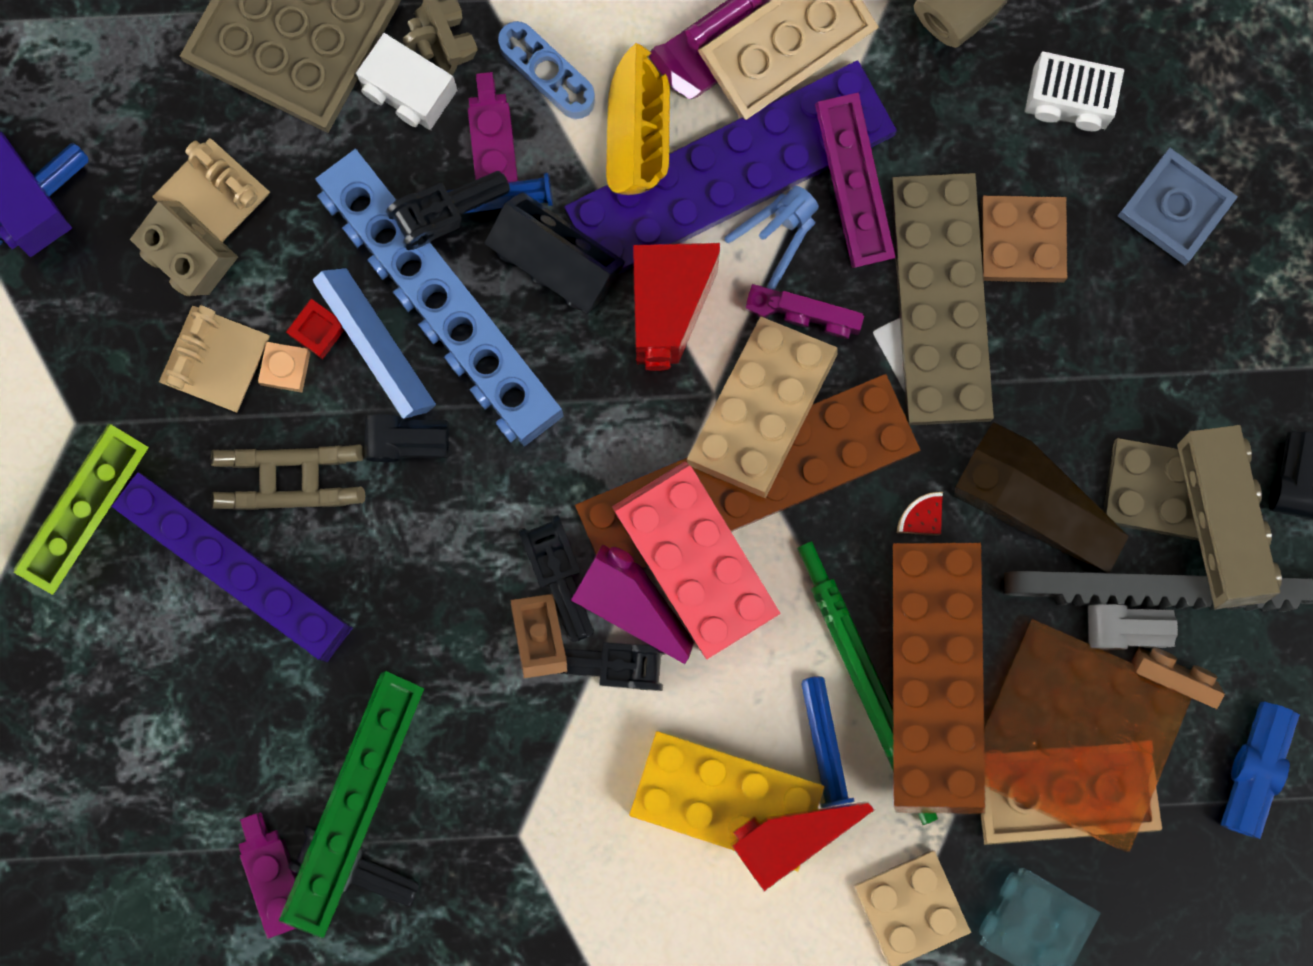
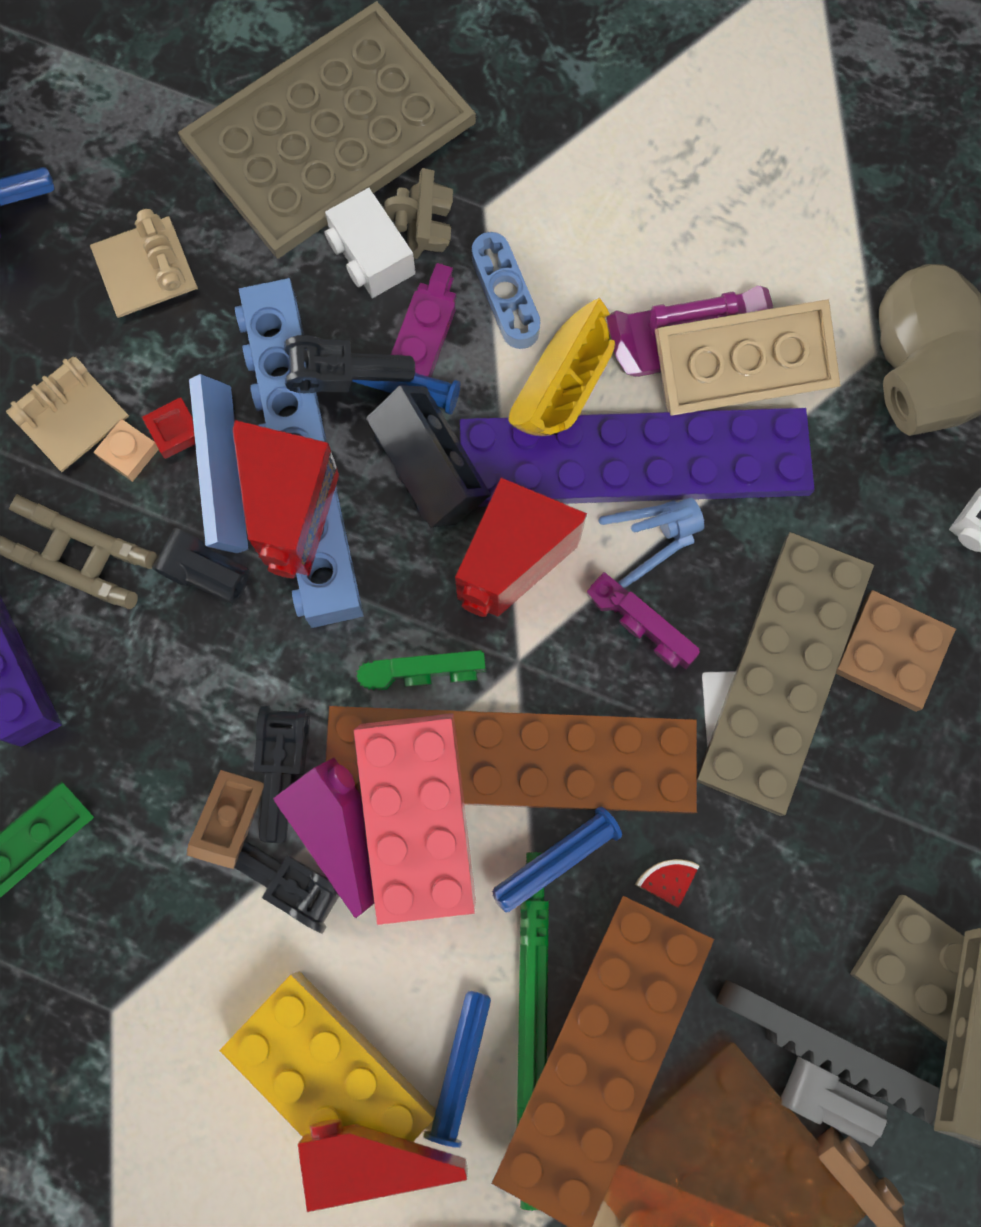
camera: 25 degrees right, 5 degrees down
(183, 249) = (89, 300): dark tan brick -> none
(459, 342) = (285, 494): none -> red slope
(636, 439) = (419, 669): none -> green hinge
(762, 407) = (557, 696): tan plate -> none
(825, 541) = (556, 860): none -> blue axle
(855, 180) = (751, 517): magenta plate -> none
(1030, 492) = (789, 909): dark brown wedge -> none

